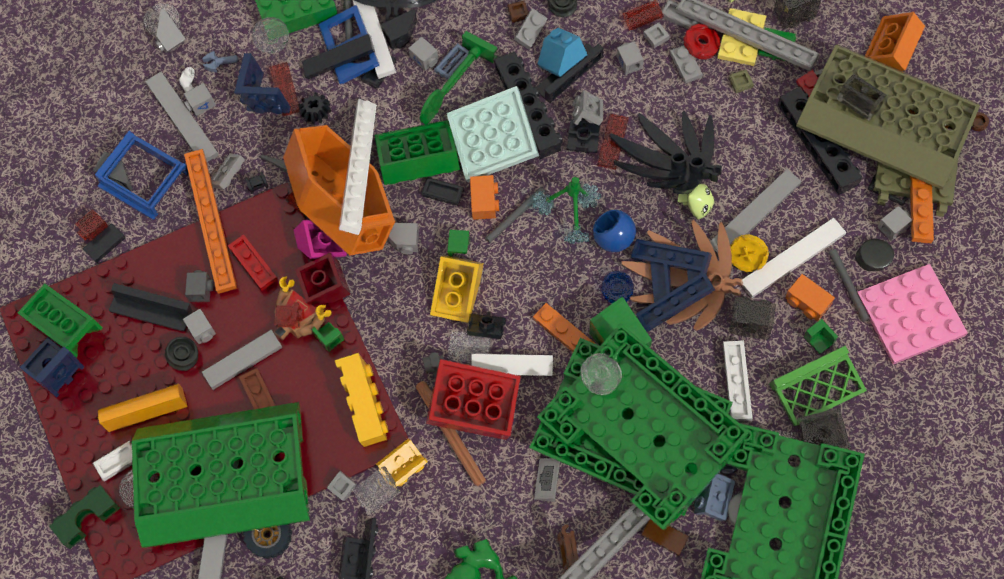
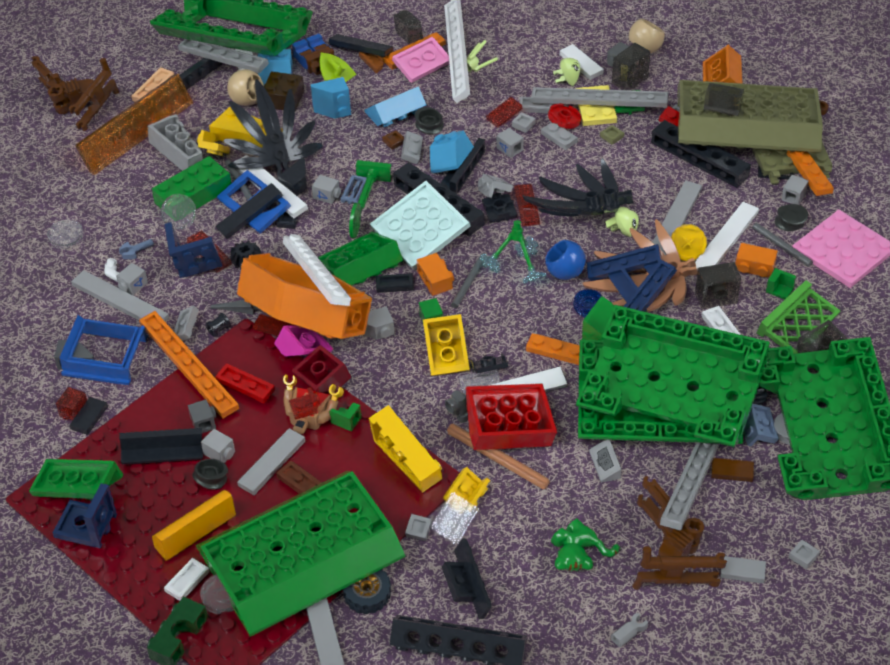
camera: 25 degrees left, 20 degrees down
(167, 34) = (78, 237): light grey slope -> none
(601, 374) = (617, 349): clear tile -> none

